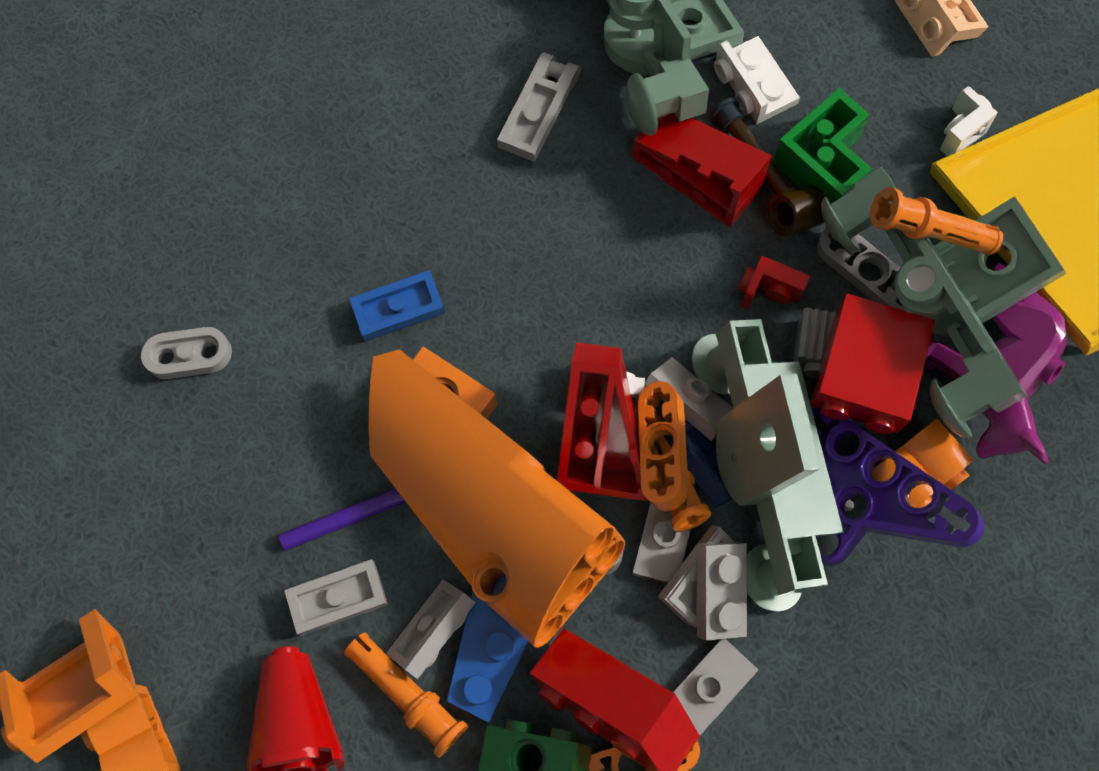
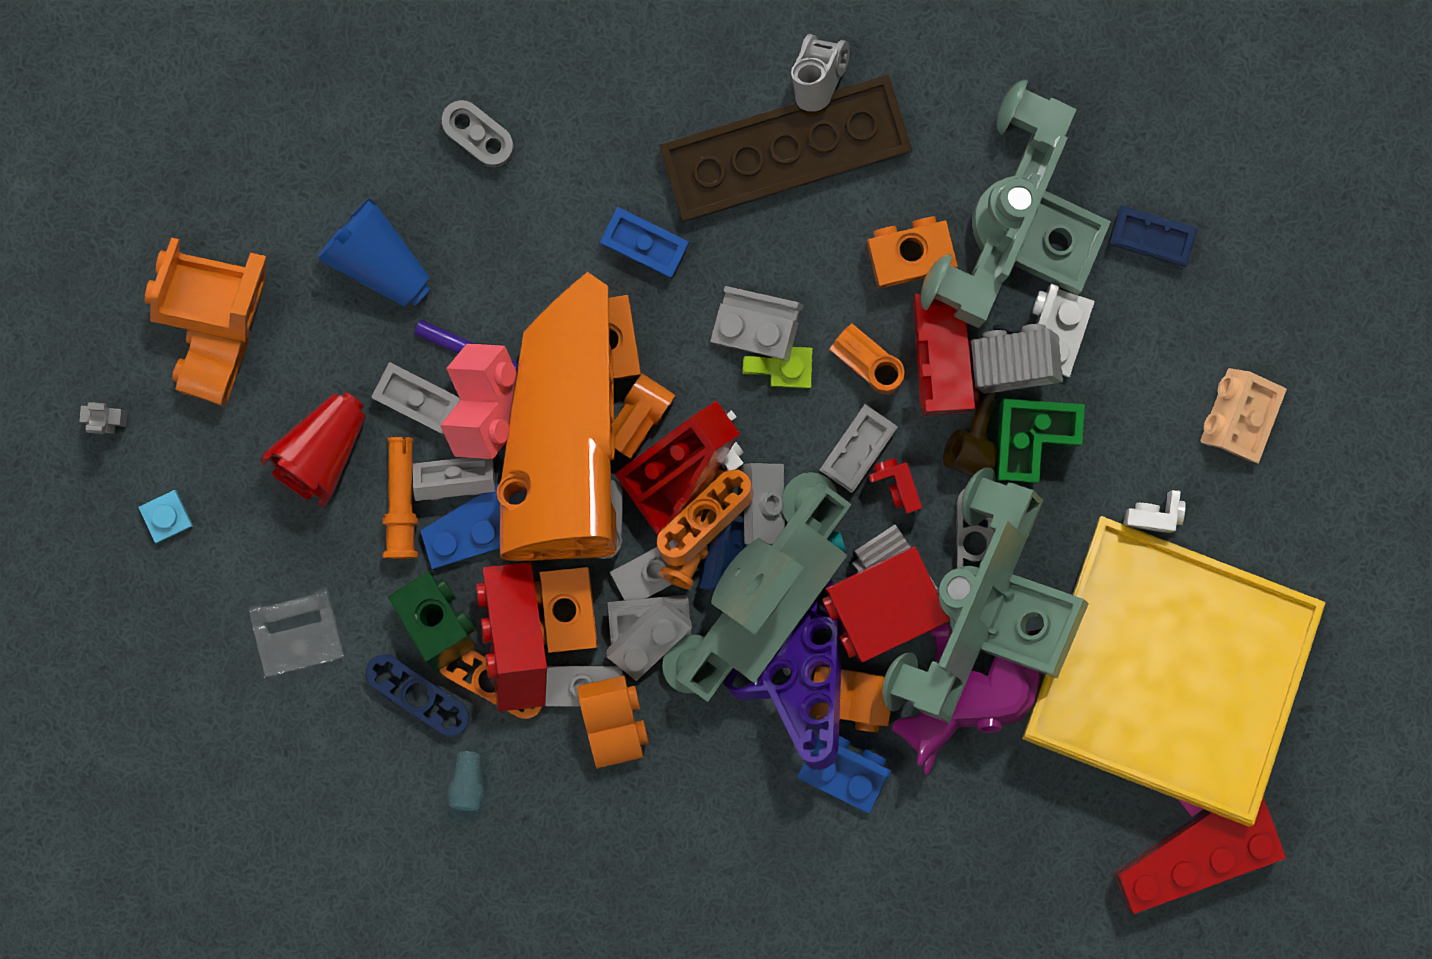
camera: 40 degrees right, 15 degrees up
(189, 518) = (376, 256): none -> blue cone
(386, 530) = (486, 391): none -> coral brick
(401, 71) = (818, 71): none -> light grey piece
(430, 147) = (785, 149): none -> dark brown plate
(525, 423) = (641, 410): none -> orange piece
(538, 107) = (887, 194): light grey plate -> none
(542, 277) = (756, 323): none -> light grey plate
(592, 145) = (885, 254): none -> orange brick
(594, 288) = (784, 374): none -> lime plate
(621, 611) = (572, 585): none -> orange brick
(649, 224) = (865, 358): none -> orange piece
(712, 288) = (858, 448): none -> light grey plate
(759, 102) = (1016, 359): none -> light grey brick
(766, 688) = (611, 721): none -> orange brick
(922, 219) = (994, 554): orange pin -> none
(1002, 535) = (850, 777): none -> blue bracket

